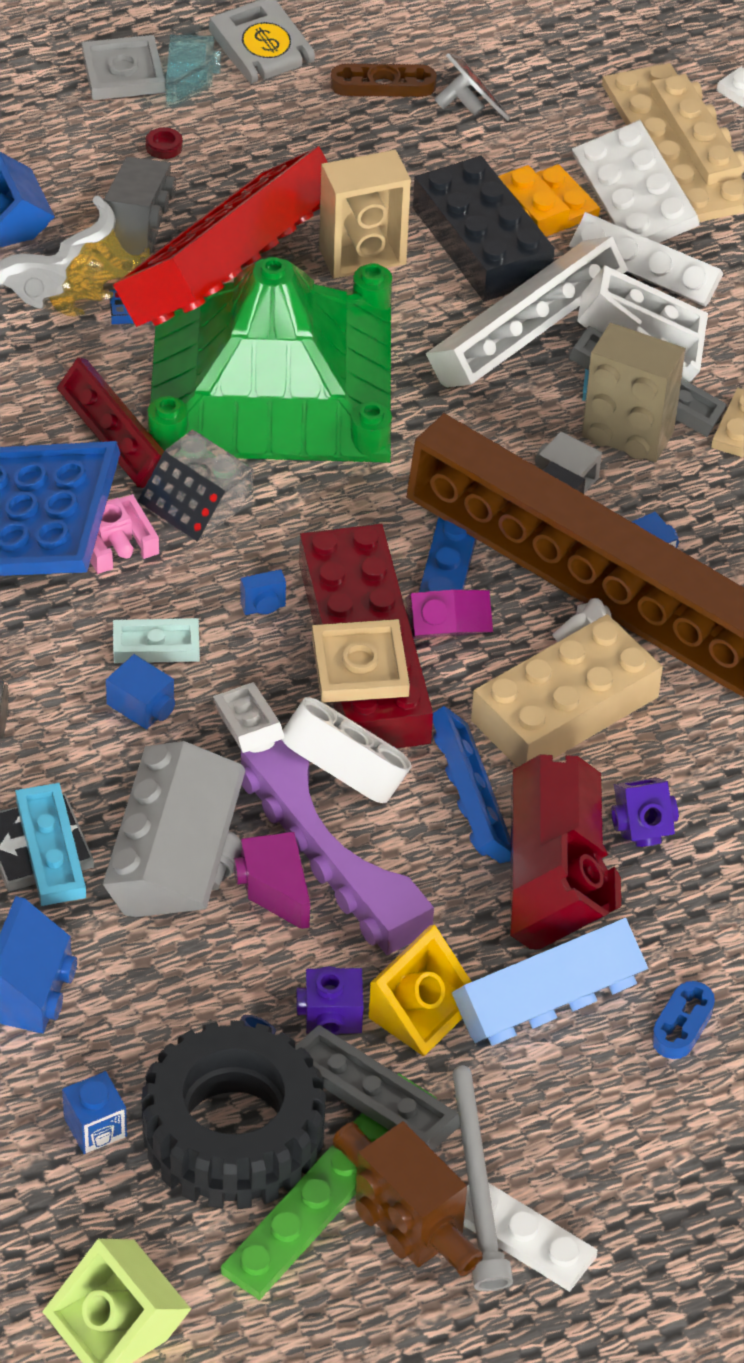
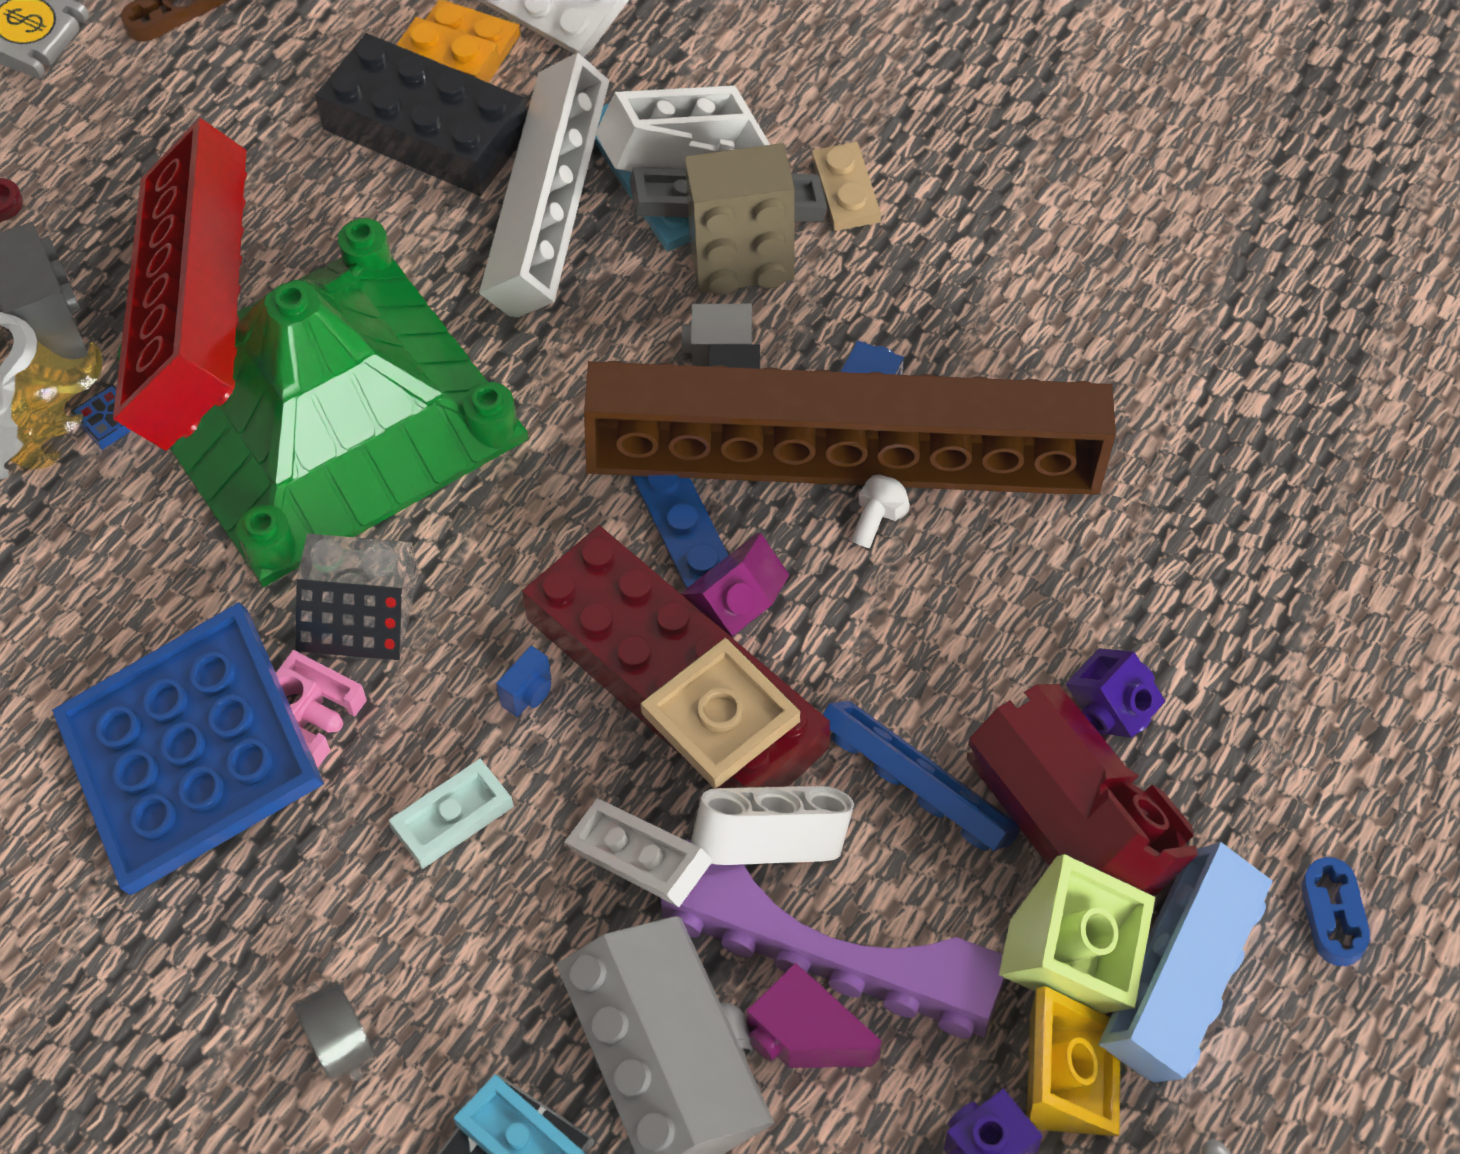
camera: 30 degrees left, 10 degrees up
(110, 420) = (198, 572): dark red tile -> none
(140, 692) = (487, 891): blue brick -> none
(364, 212) = (301, 167): tan brick -> none
(485, 914) = (1080, 937): none -> yellowish green slope
(567, 692) = (929, 606): tan brick -> none
(654, 261) = (618, 55): white plate -> none

